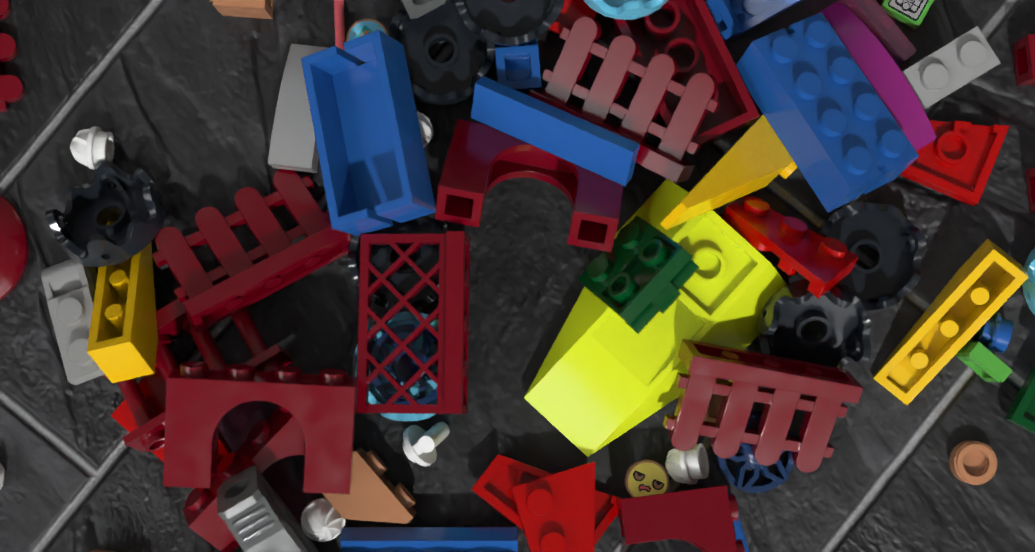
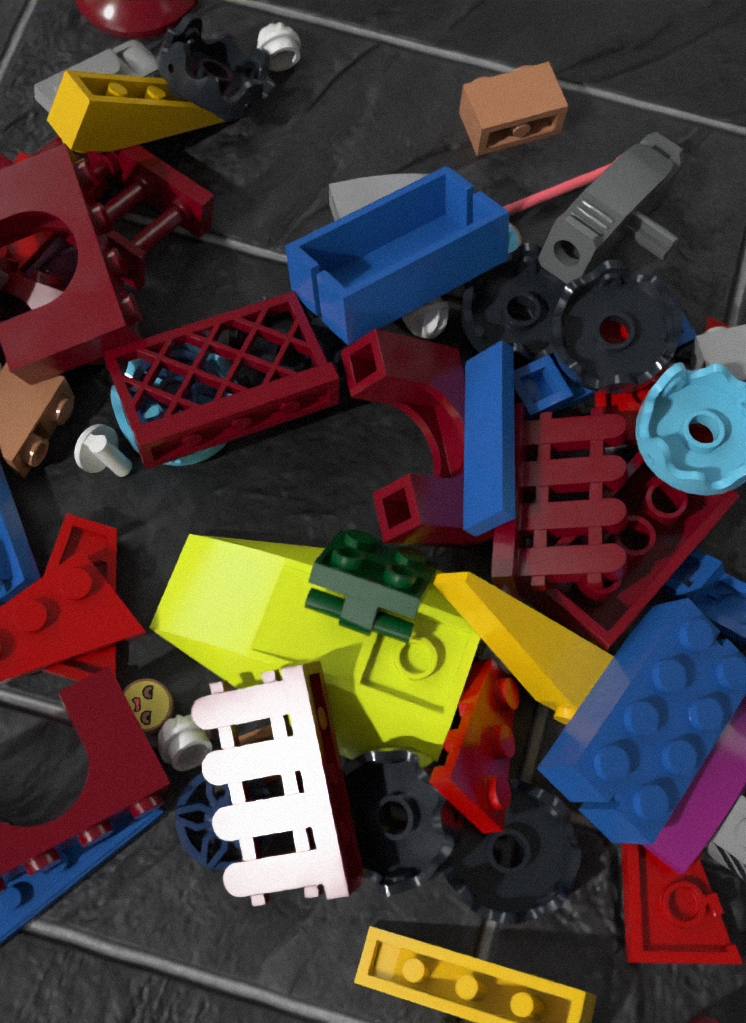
camera: 60 degrees right, 15 degrees down
(260, 270) = (207, 208): dark red fence -> none

